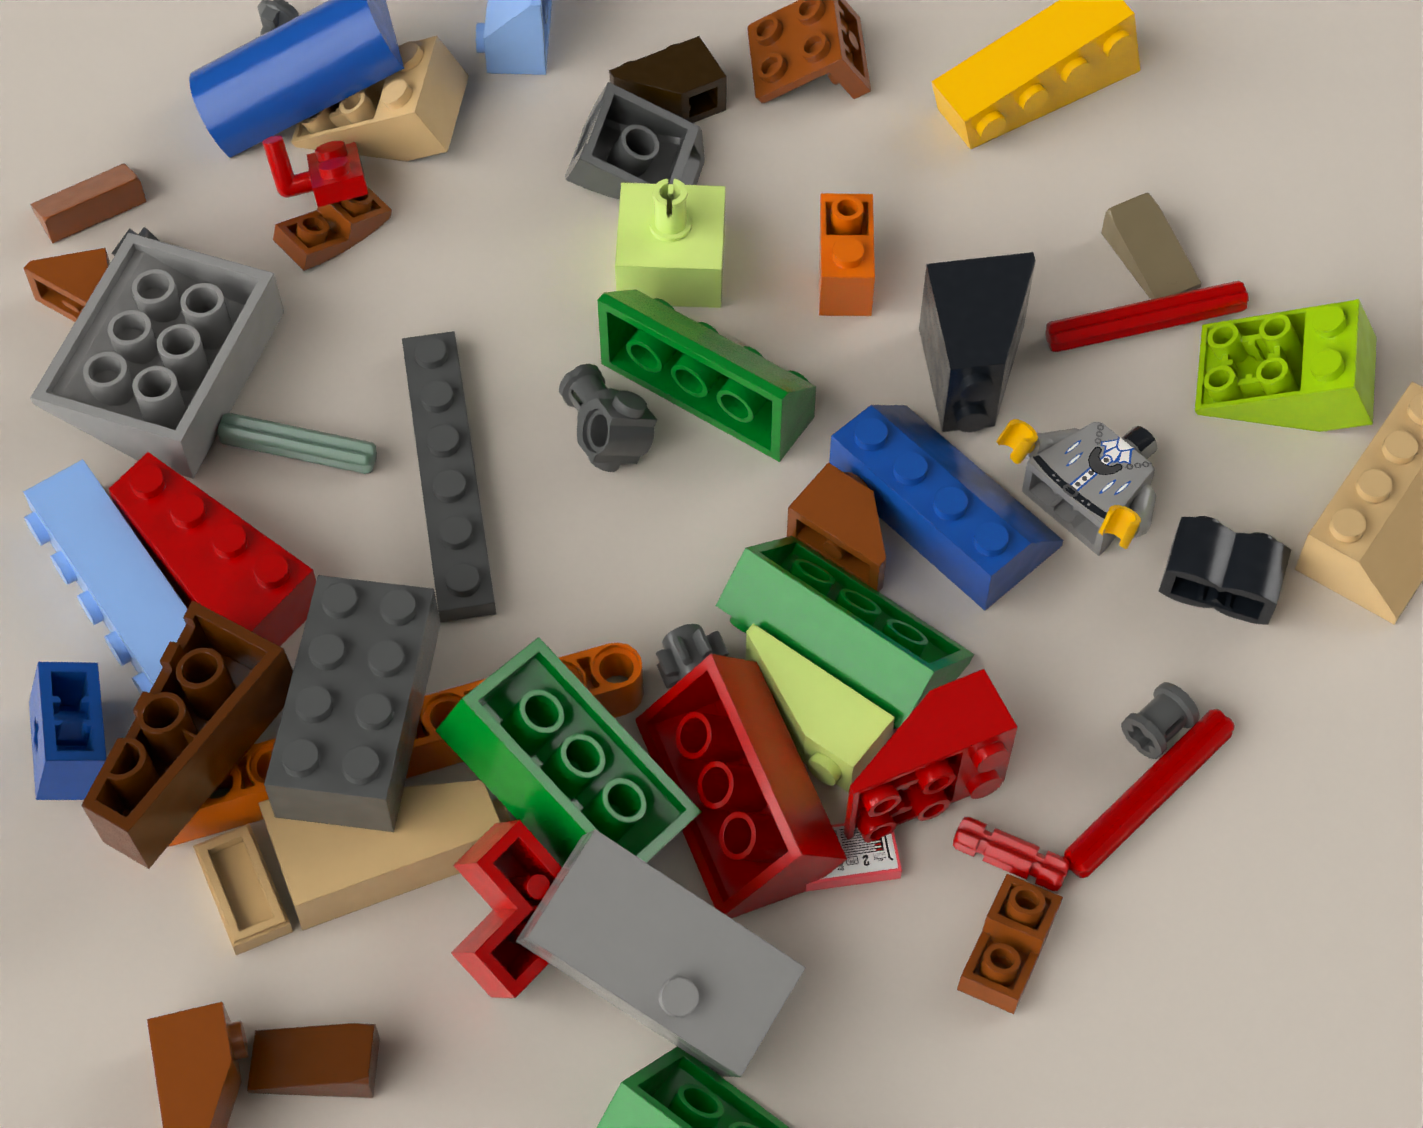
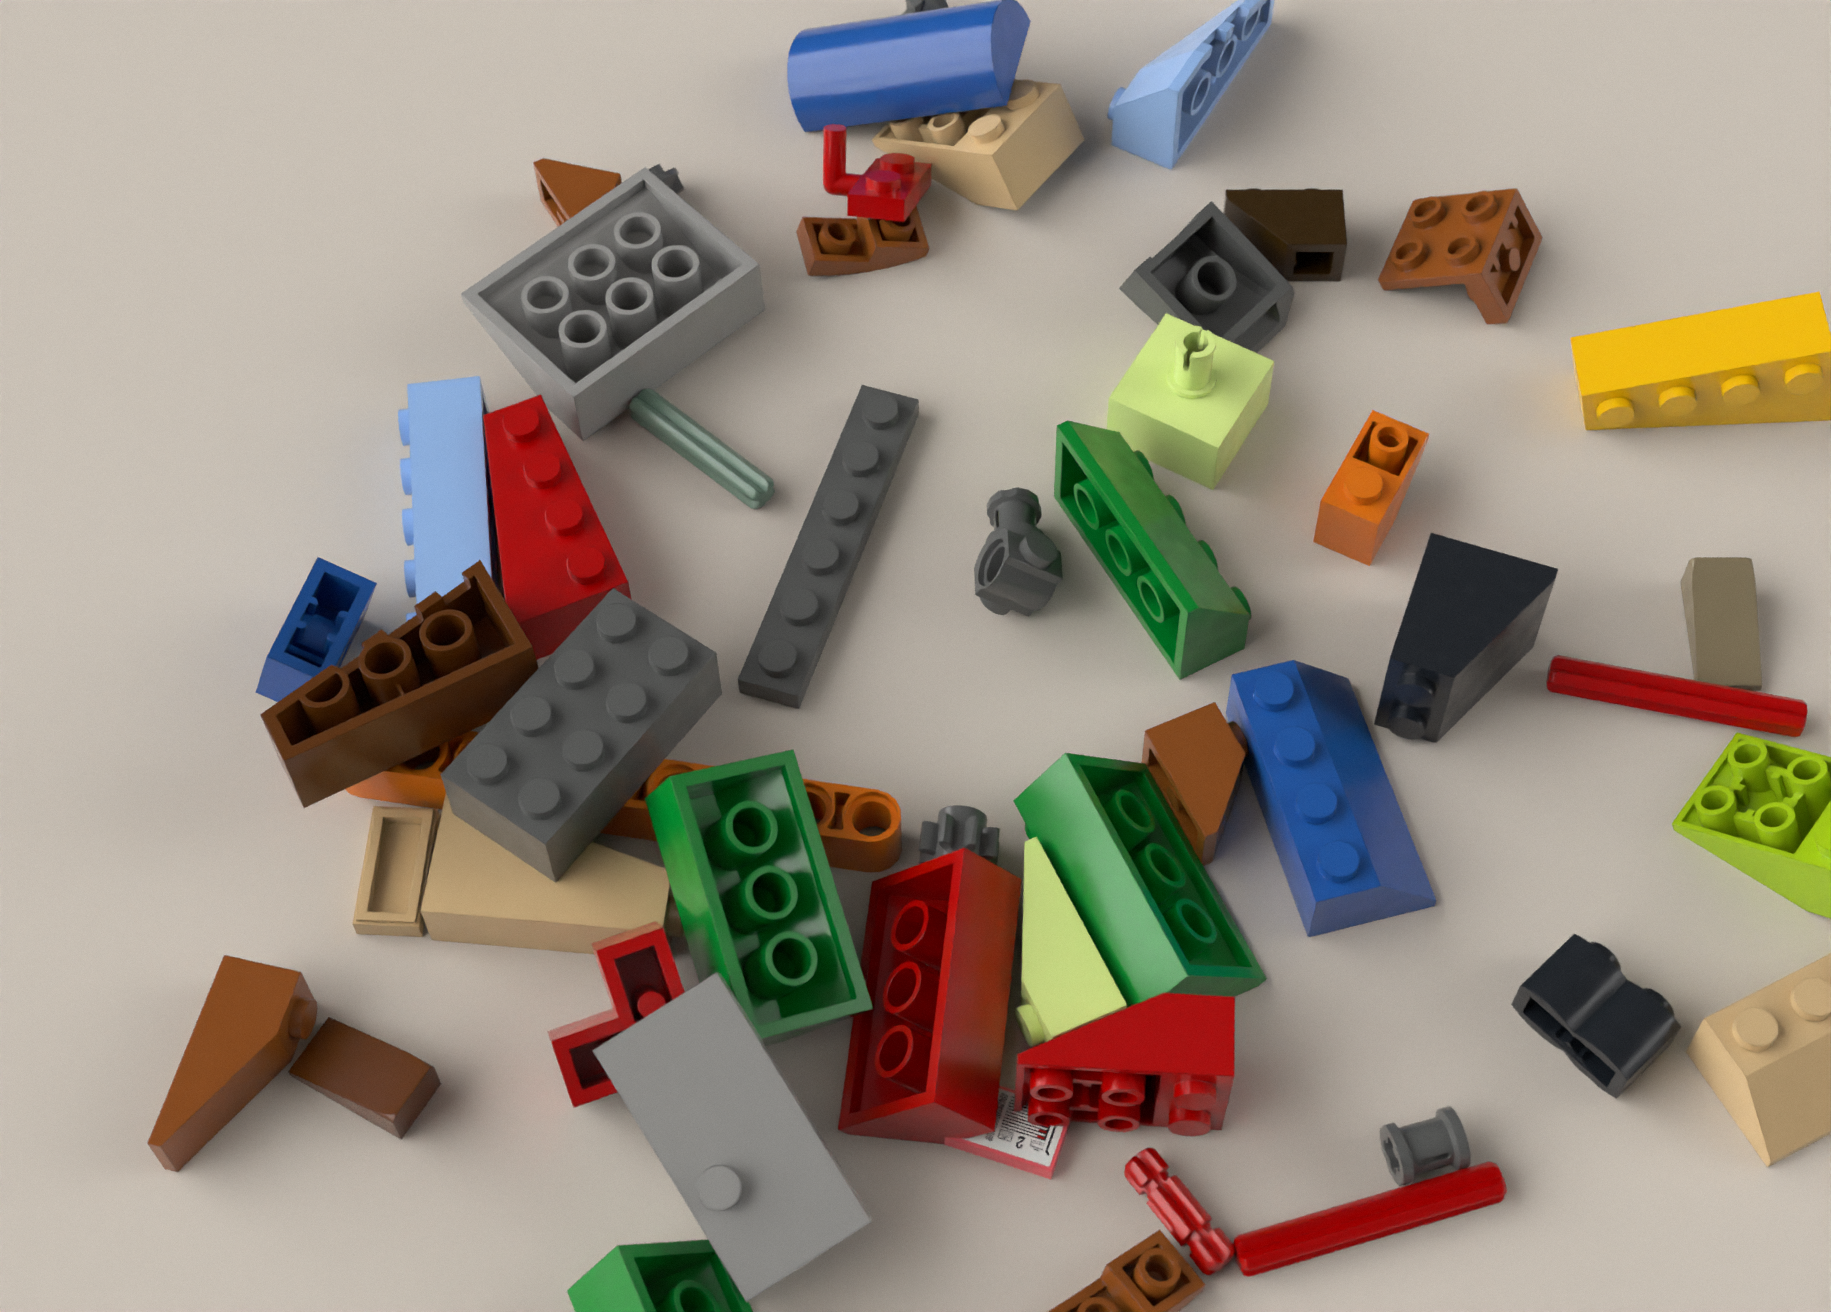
camera: 30 degrees right, 0 degrees up
(89, 202) = (641, 123): dark orange slope -> none
(1088, 479) = (1498, 845): light grey torso -> none

